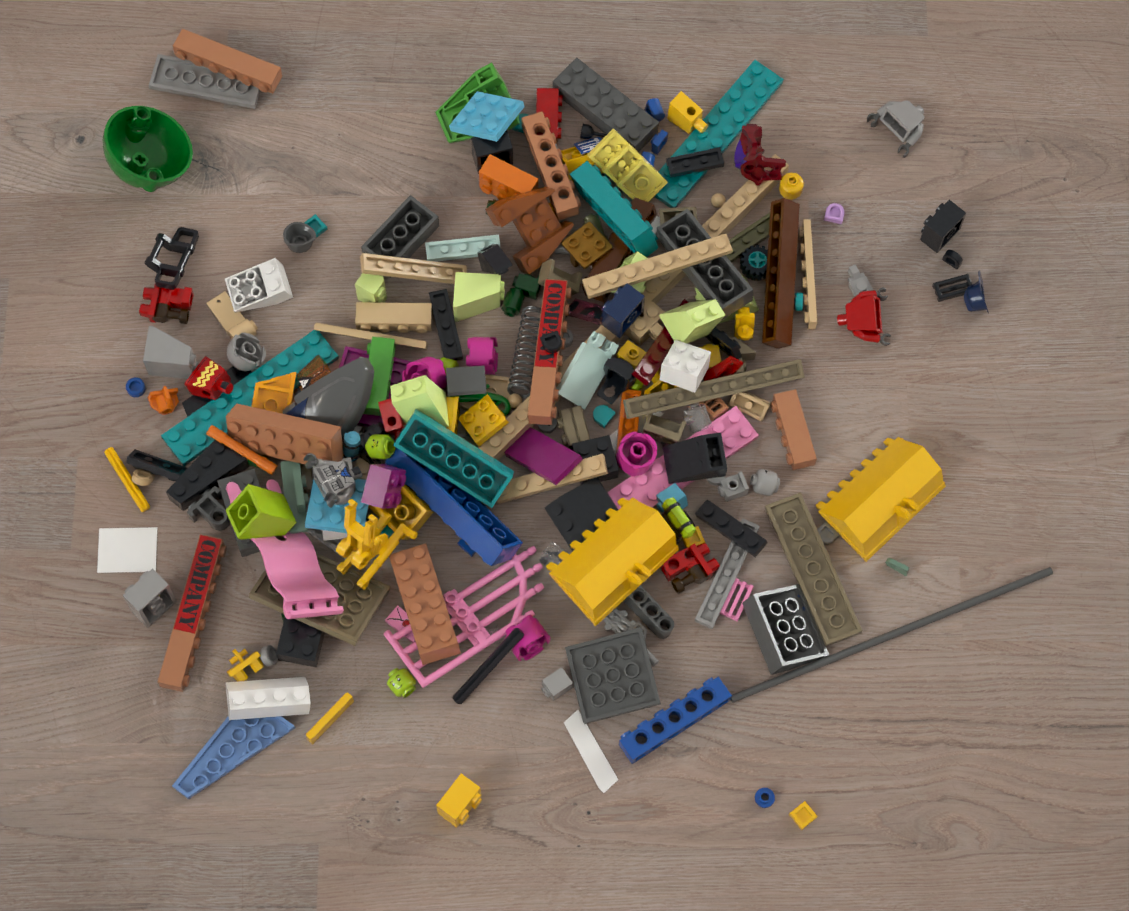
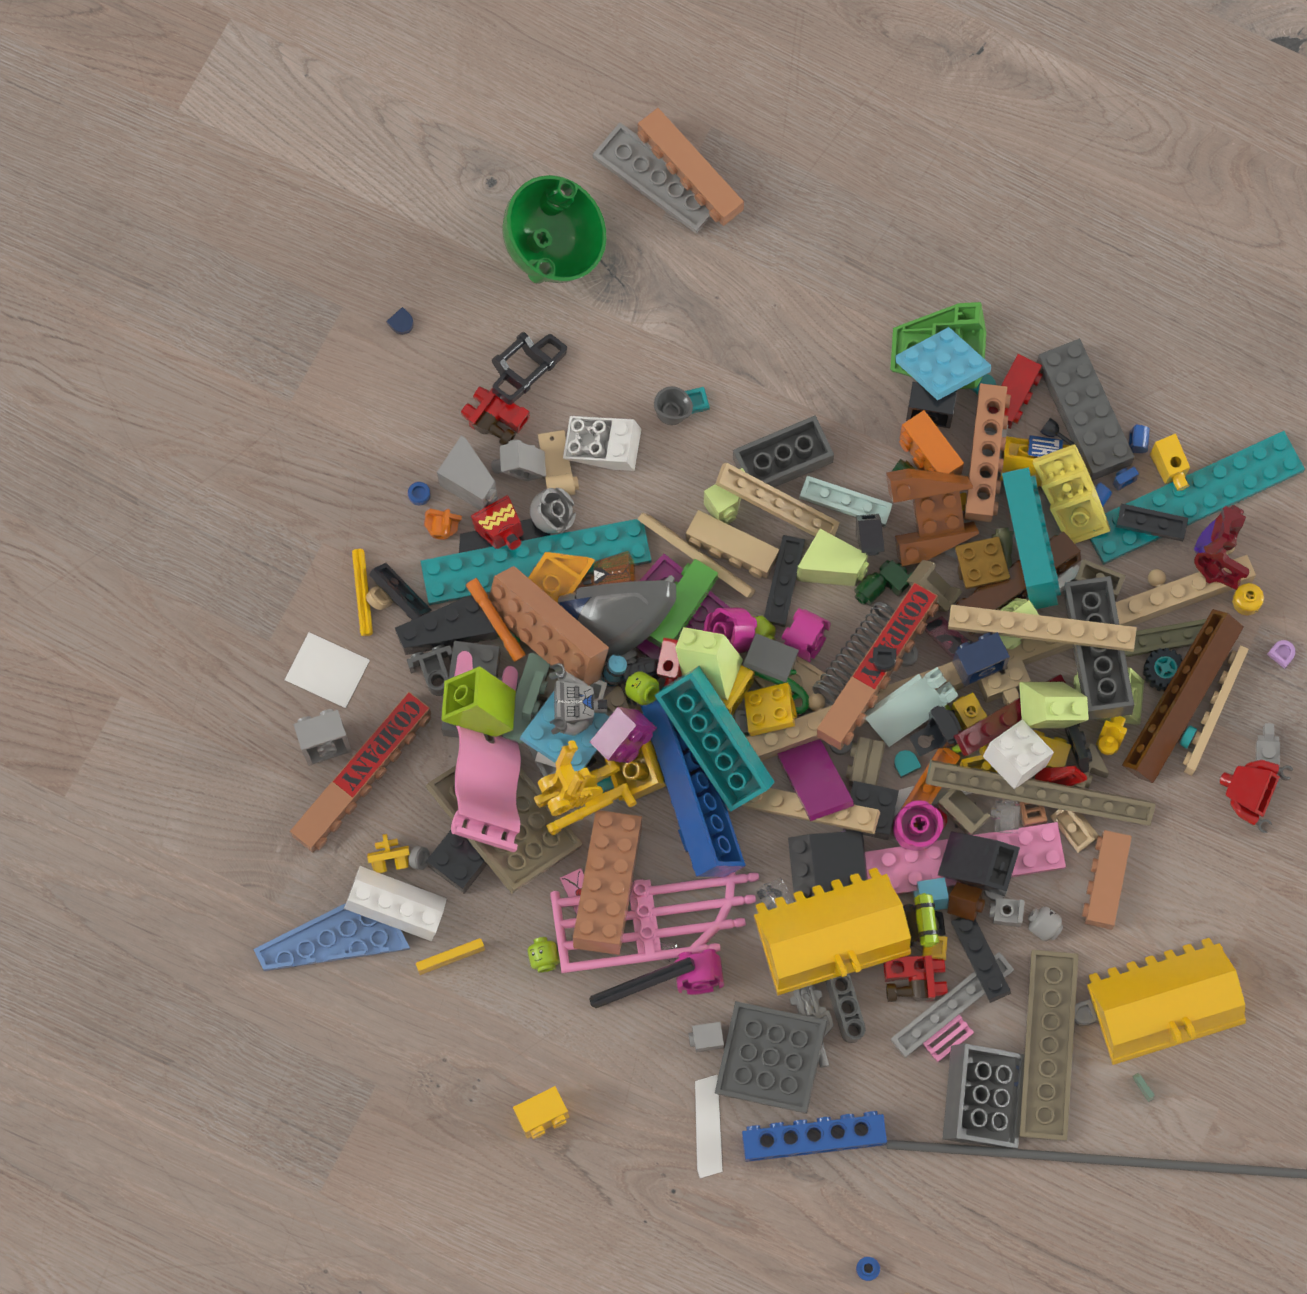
camera: 30 degrees right, 5 degrees up
(60, 268) = (401, 322): none -> dark blue tile
(203, 327) = (520, 461): none -> light grey brick
(699, 492) = (965, 901): none -> reddish brown brick

